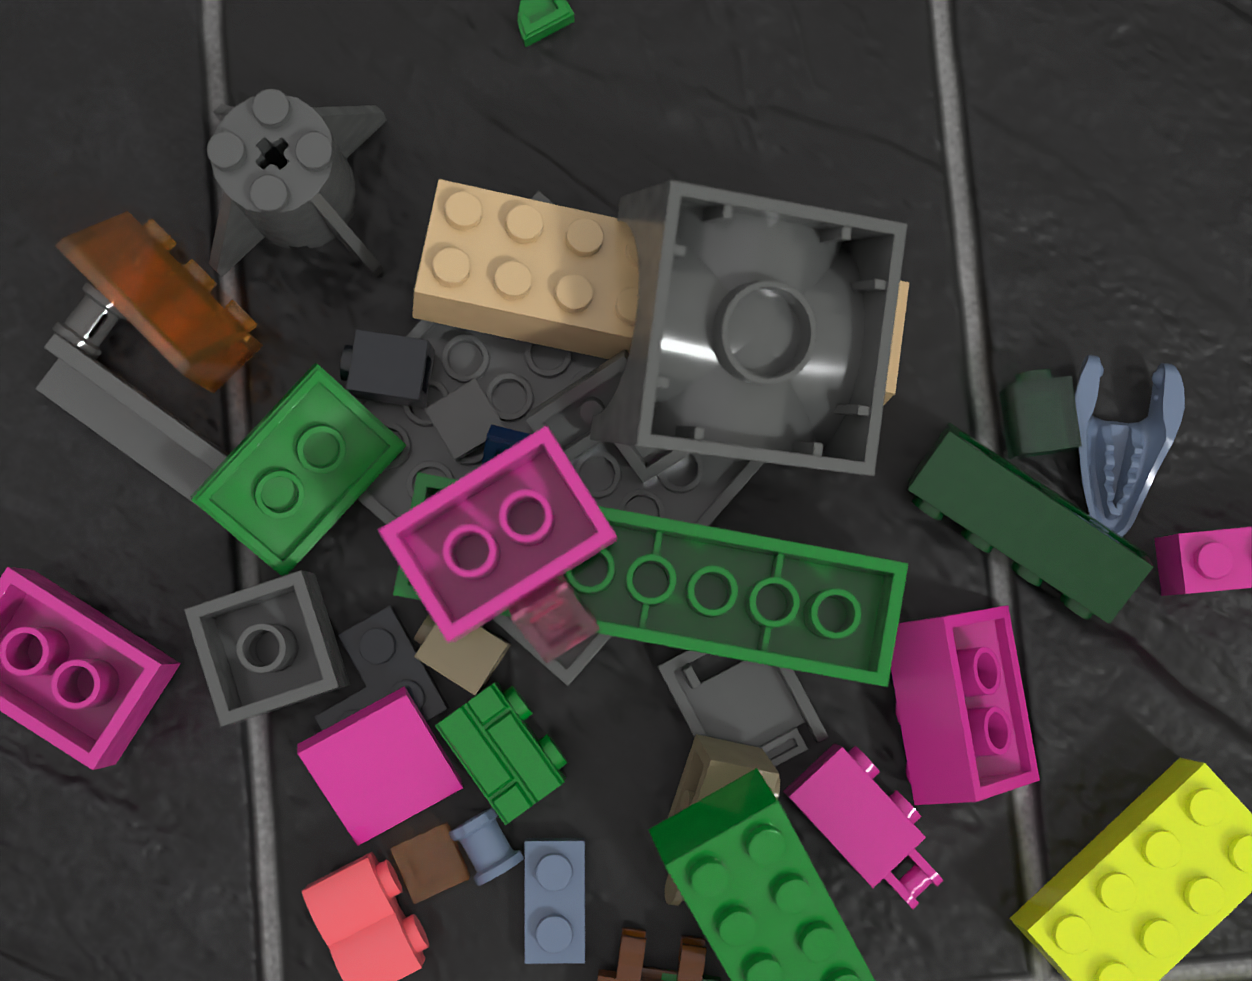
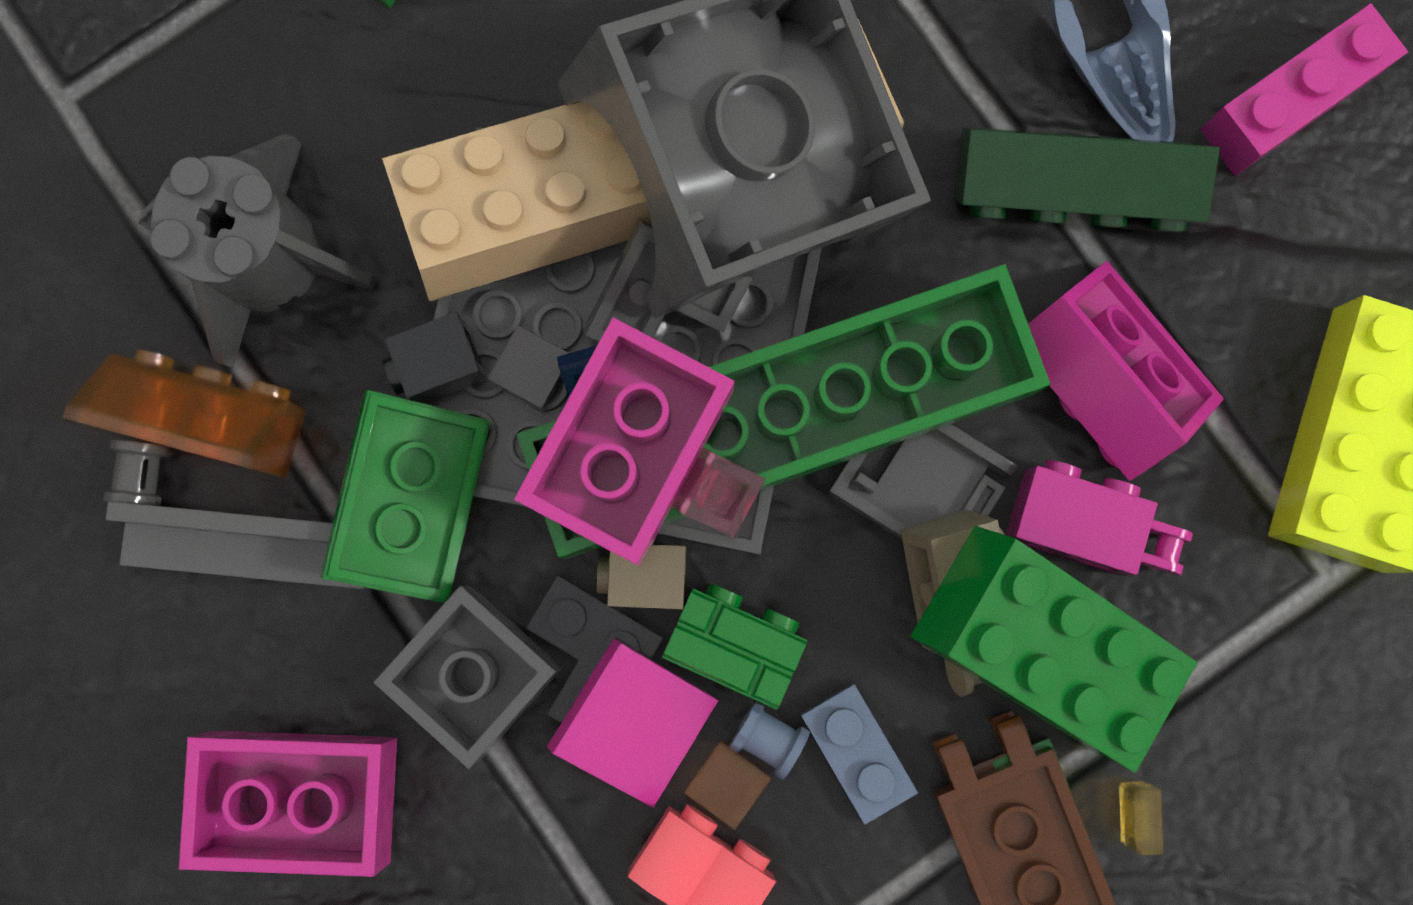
camera: 25 degrees left, 0 degrees up
(1039, 415) = (1039, 75): clear green brick -> none

